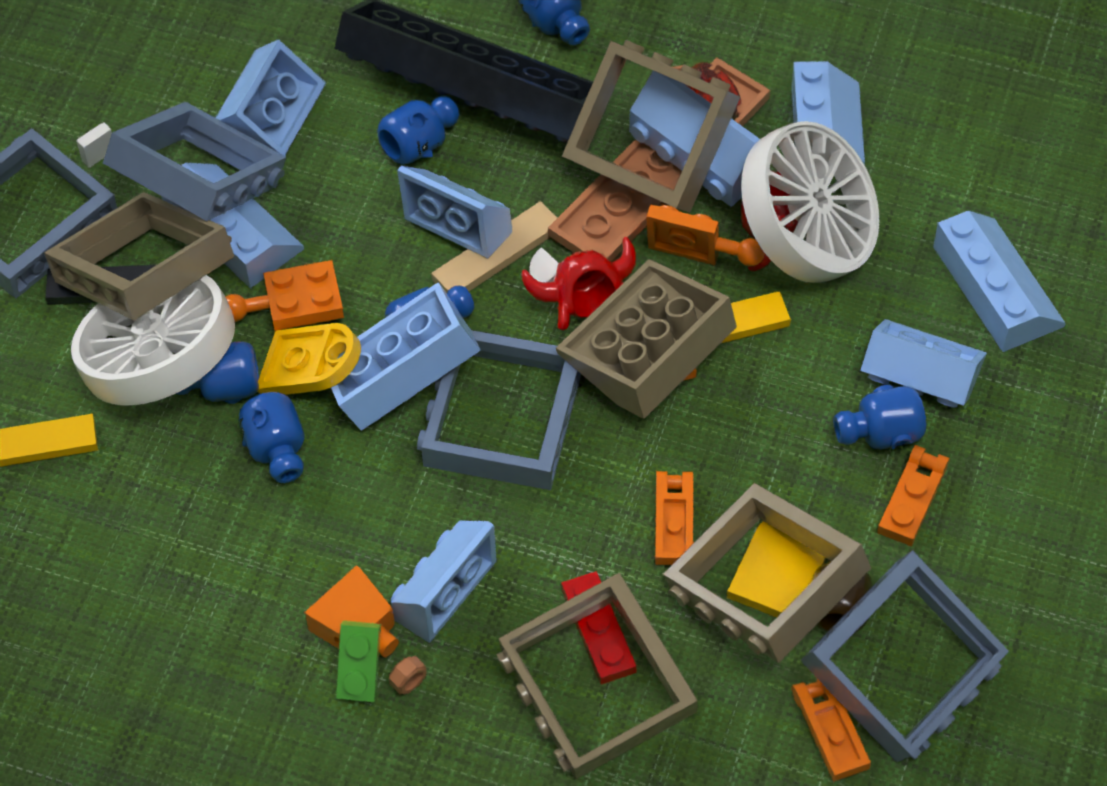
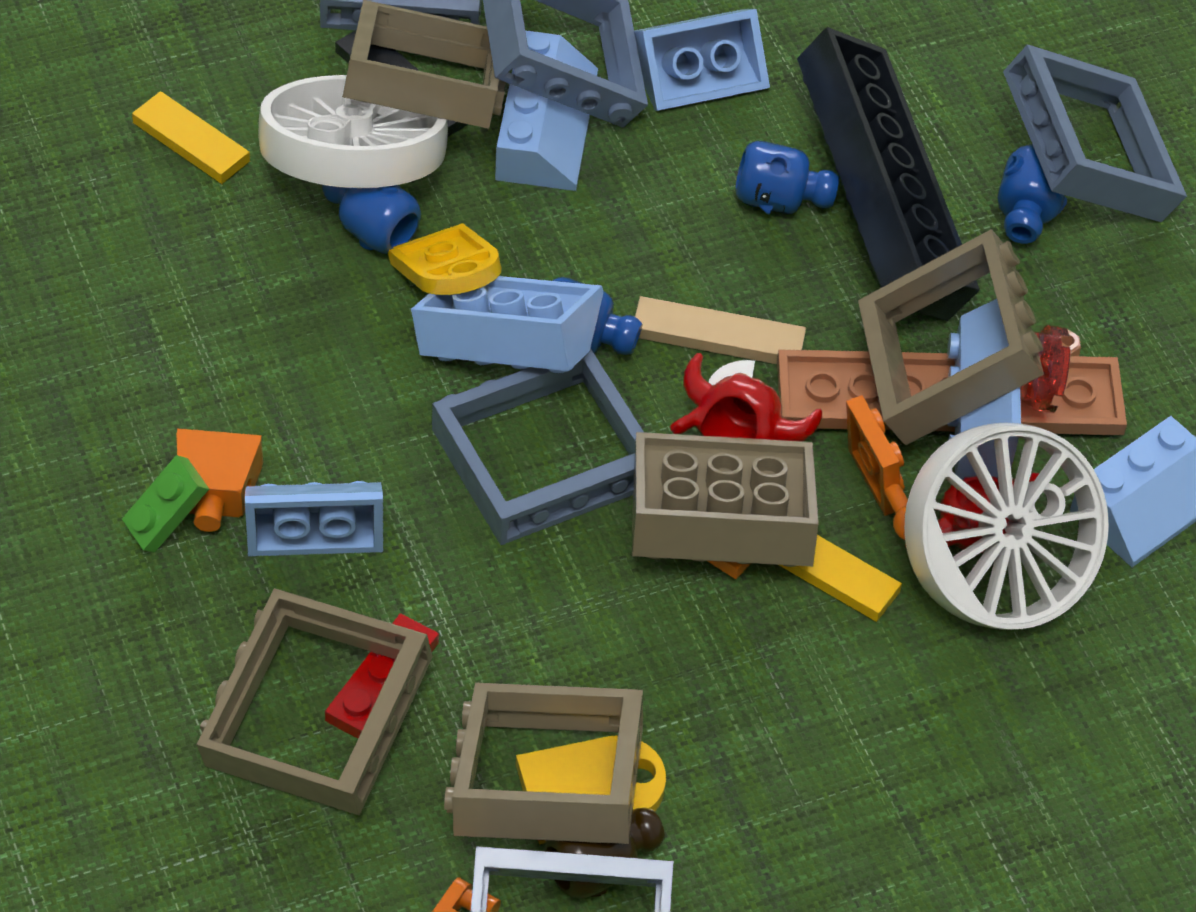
camera: 45 degrees right, 5 degrees down
(273, 434) = (346, 289): blue piece -> none
(295, 296) = (511, 214): orange plate -> none
(407, 675) = (190, 555): nougat tile -> none
(453, 211) = (719, 261): light blue slope -> none
(673, 516) = (562, 654): orange plate -> none
(884, 419) = (835, 763): blue piece -> none
(912, 496) = (780, 850): orange plate -> none
(922, 362) = (941, 757): light blue slope -> none
(995, 280) = (1112, 763): light blue slope -> none

